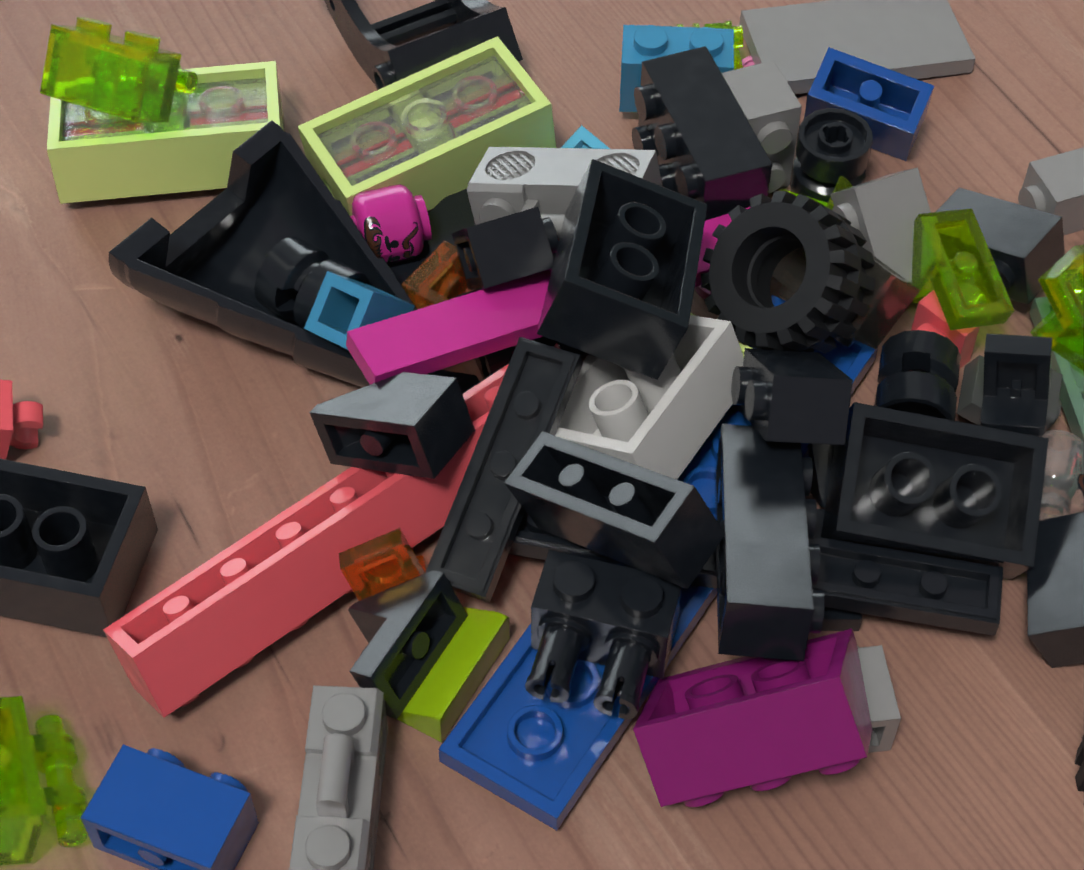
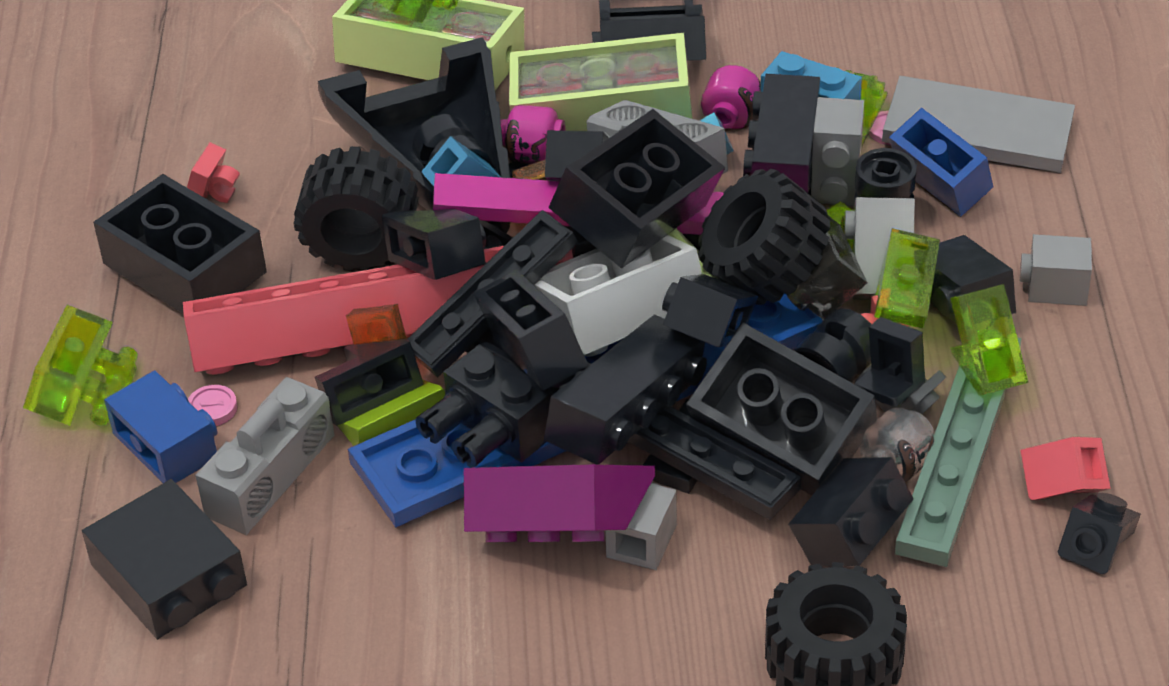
camera: 30 degrees right, 10 degrees down
(207, 746) = (216, 401): none -> bright pink piece
(245, 407) = (328, 204): none -> black tyre
(577, 95) = (731, 95): none -> dark pink head

